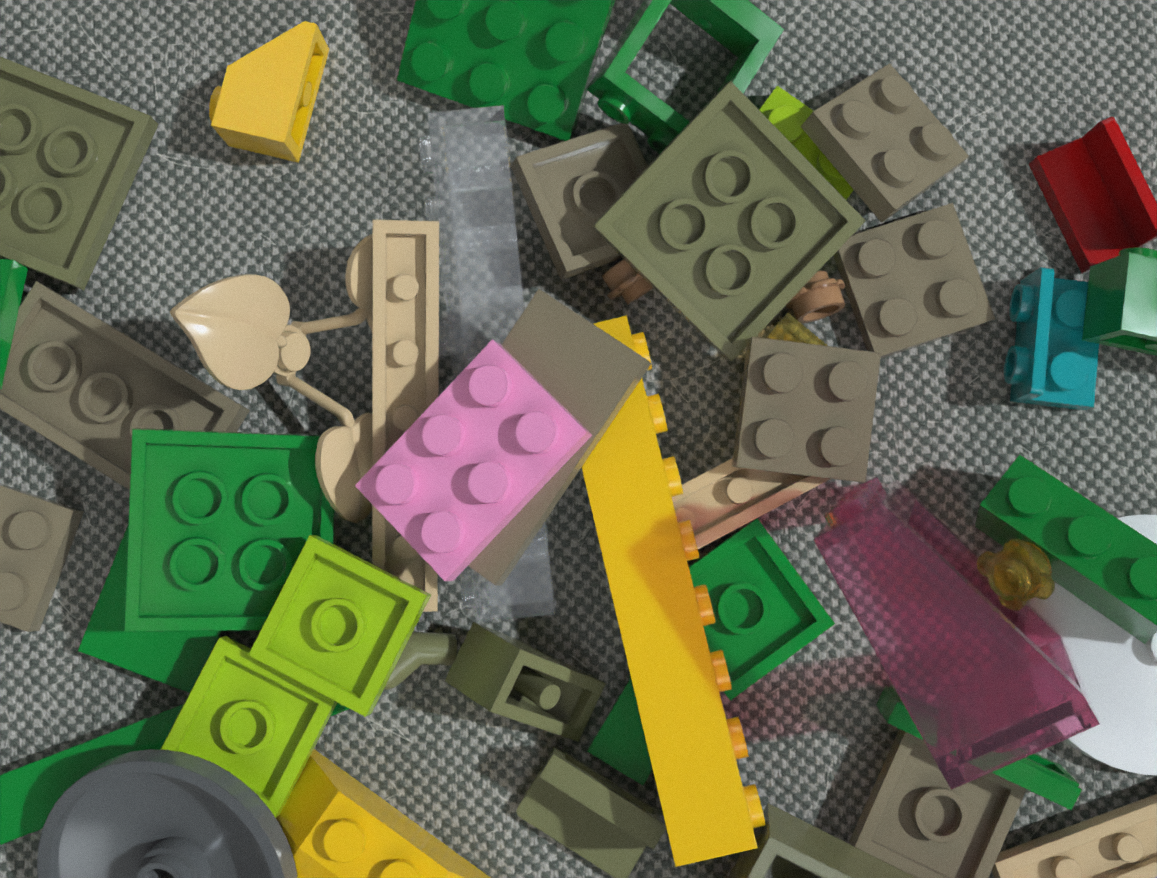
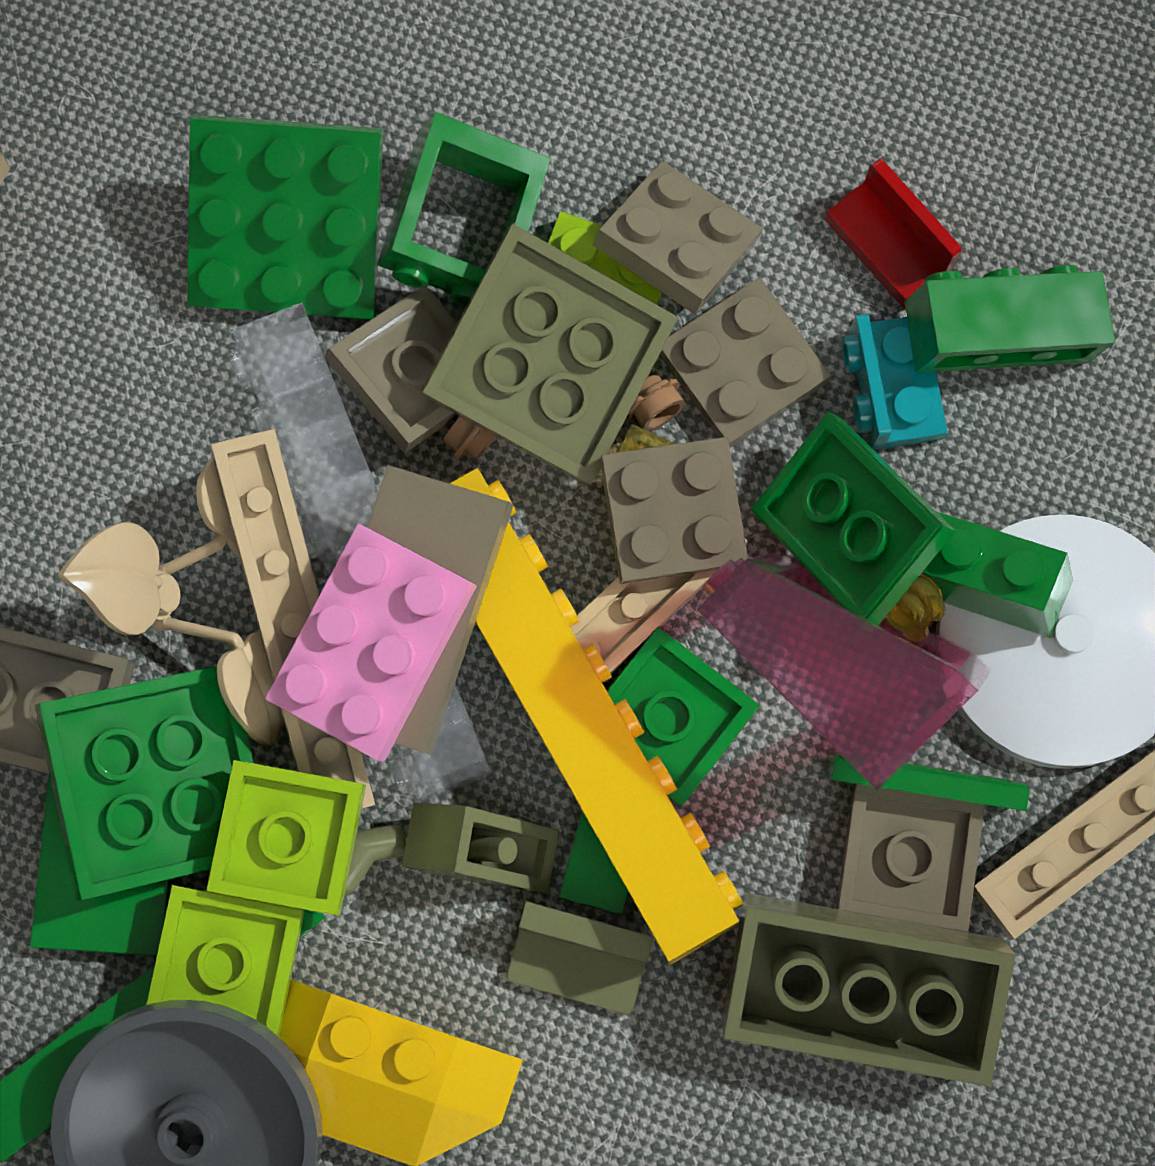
camera: 25 degrees left, 5 degrees down
(271, 94) = (68, 354): yellow slope -> none
(983, 474) = (852, 520): none -> green tile

